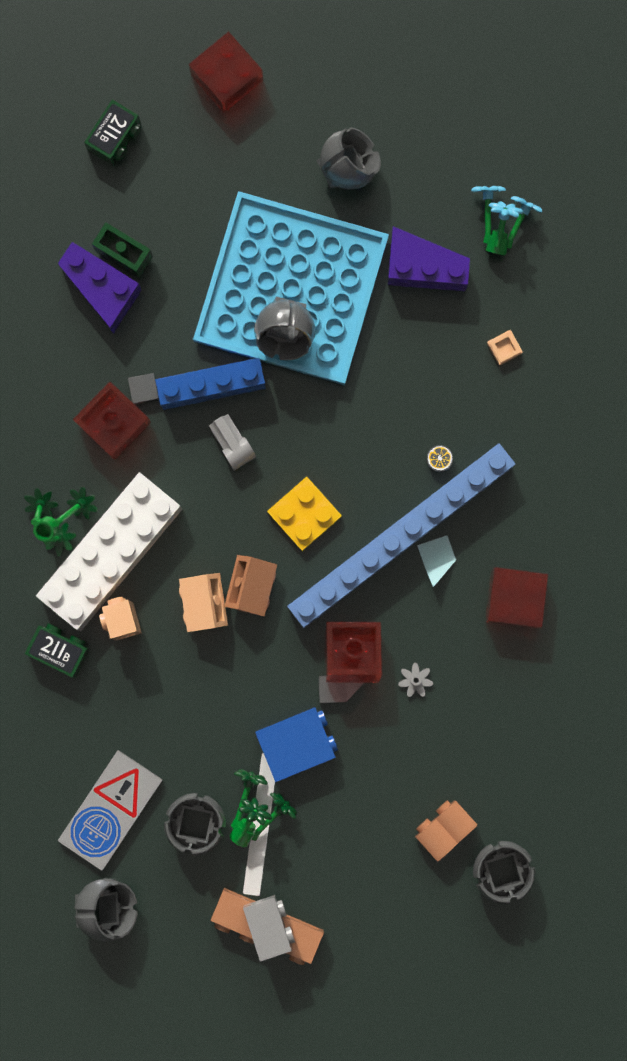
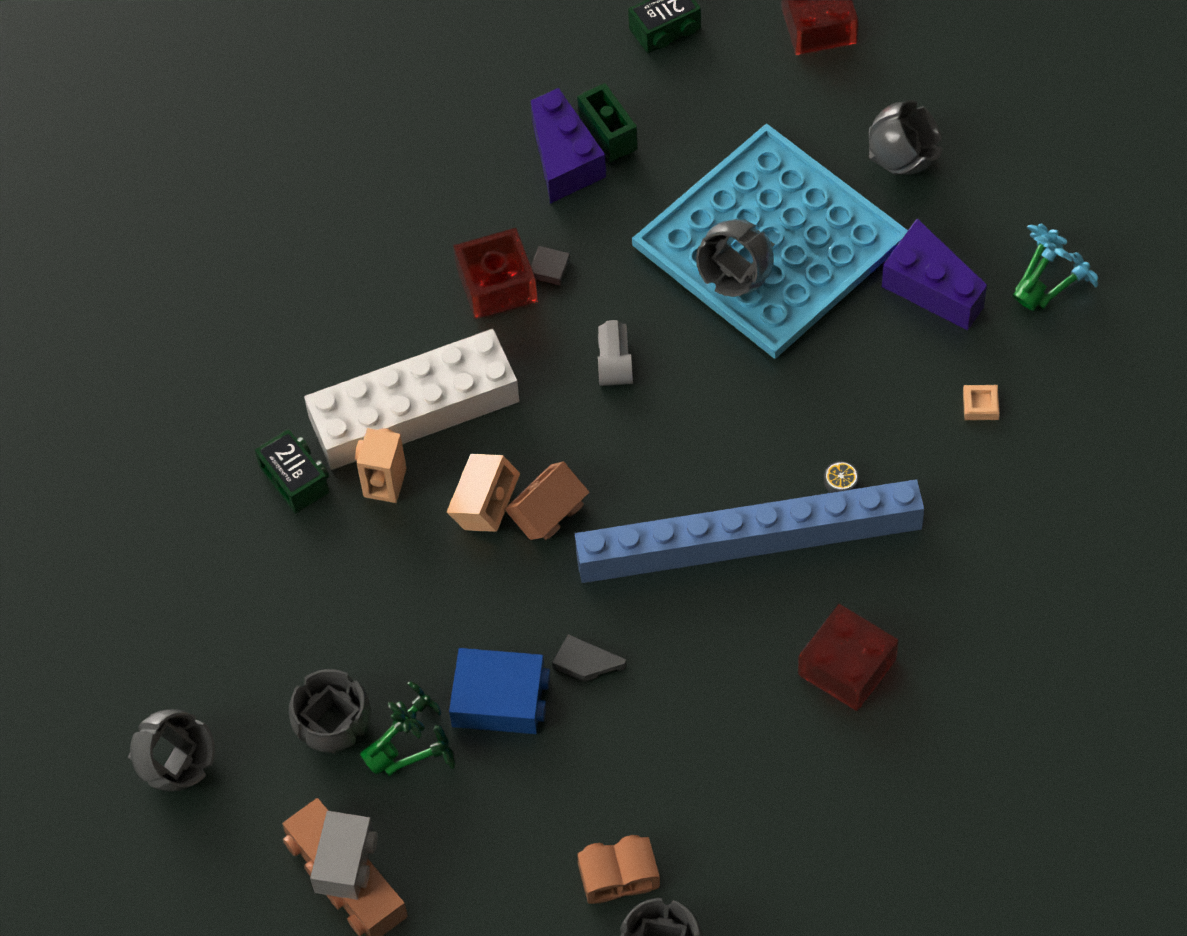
camera: 30 degrees right, 25 degrees down
(48, 528) = (361, 328): dark green plant -> none
(110, 810) = (245, 662): light grey tile -> none
(210, 384) = (625, 287): blue brick -> none
(258, 848) = (389, 785): white sticker -> none
(304, 514) = (652, 465): yellow plate -> none
(353, 652) = (621, 619): clear red brick -> none
(410, 680) = (678, 700): light grey plant -> none
(437, 557) = (780, 578): clear light blue sticker -> none

